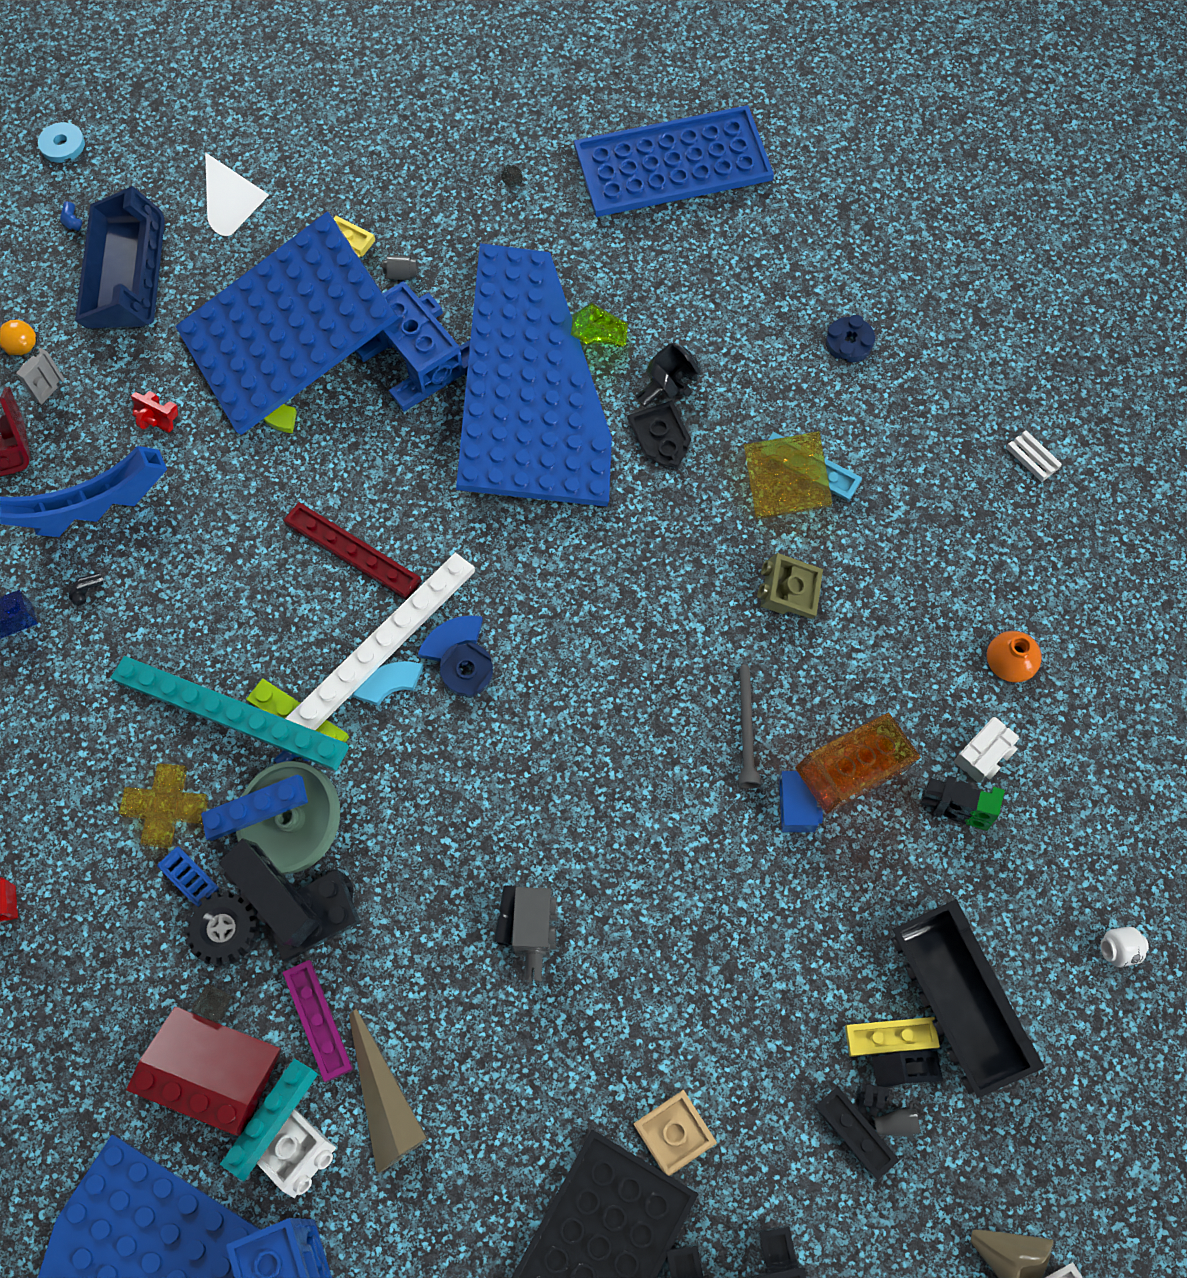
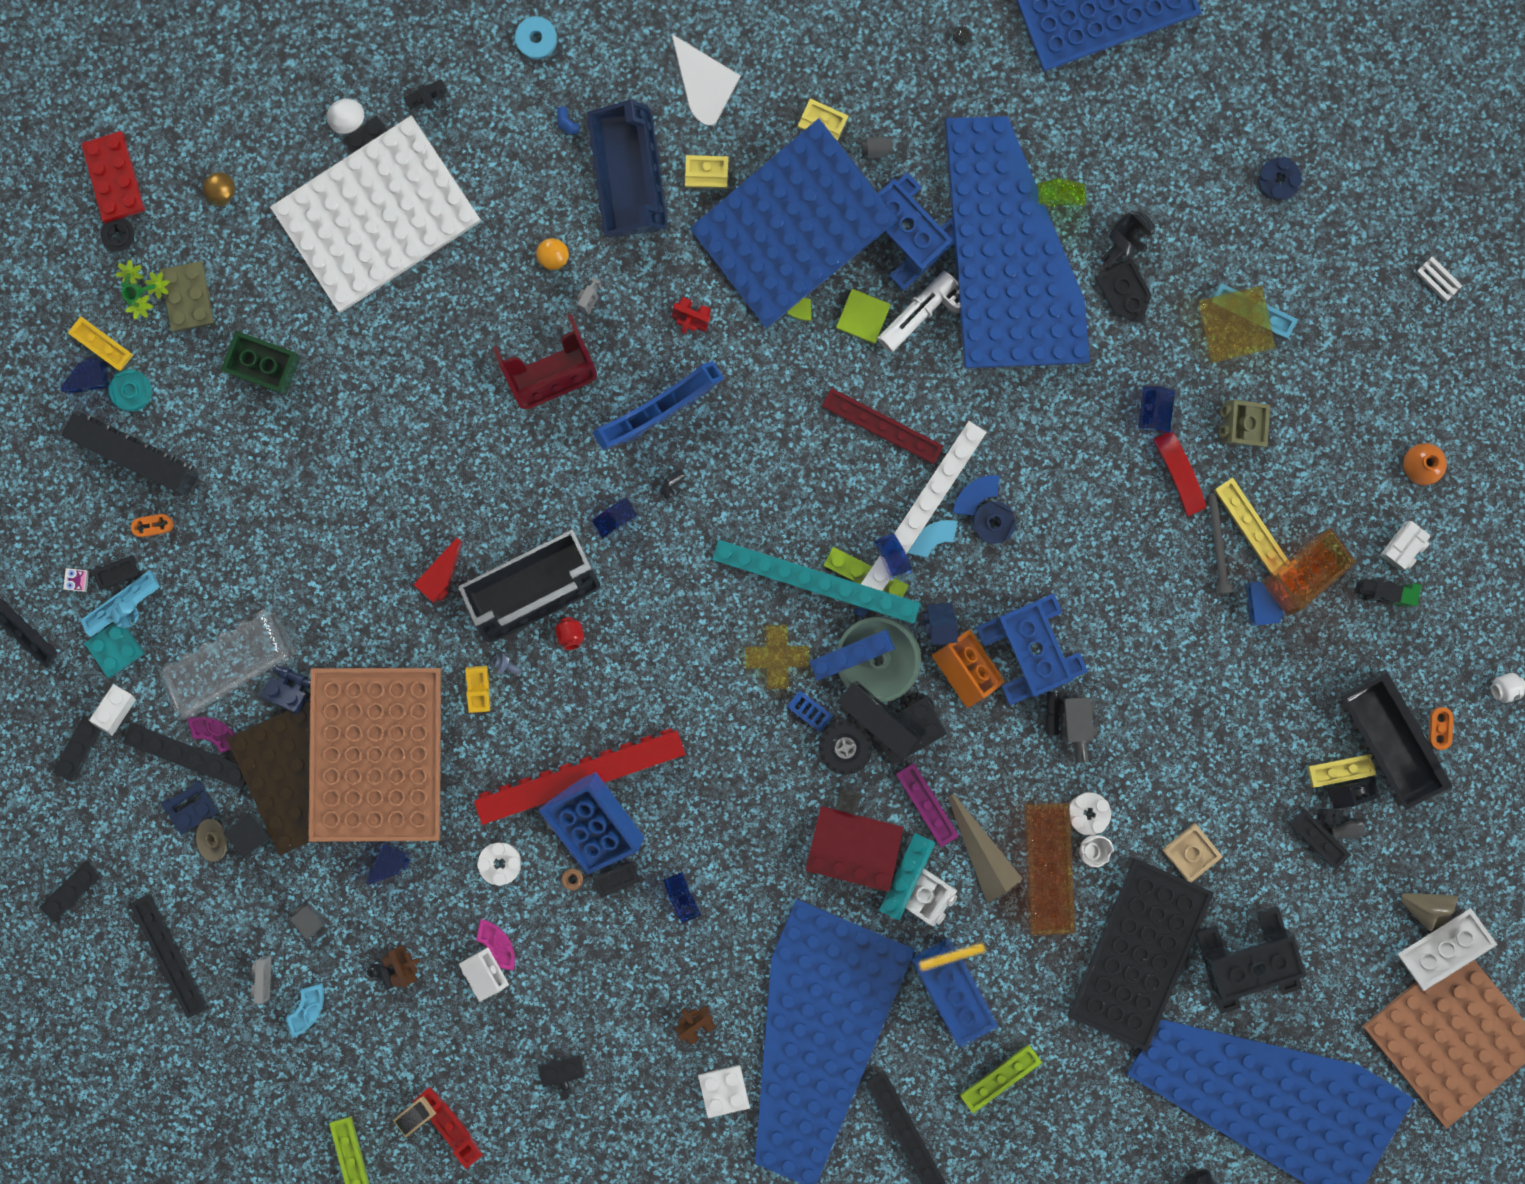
camera: 10 degrees left, 20 degrees up
(207, 274) = (706, 172): none -> light yellow plate
(278, 1230) = (952, 956): none -> yellow bar
(326, 691) = (893, 556): none -> clear blue slope
(352, 432) = (863, 316): none -> lime tile
(374, 780) = (941, 623): none -> dark blue brick
(404, 844) = (968, 669): none -> orange slope
(416, 428) = (938, 292): none -> white piece
(467, 1130) = (1049, 868): none -> clear orange brick
(496, 848) = (1022, 629): none -> blue piece
(522, 1067) = (1099, 807): none -> white plate
(538, 1111) = (1095, 850): none -> white hair
(682, 558) = (1156, 409): none -> clear blue brick
(708, 639) = (1181, 473): none -> red slope
(786, 701) = (1250, 525): none -> light yellow plate
(1034, 995) = (1442, 728): none -> orange plate

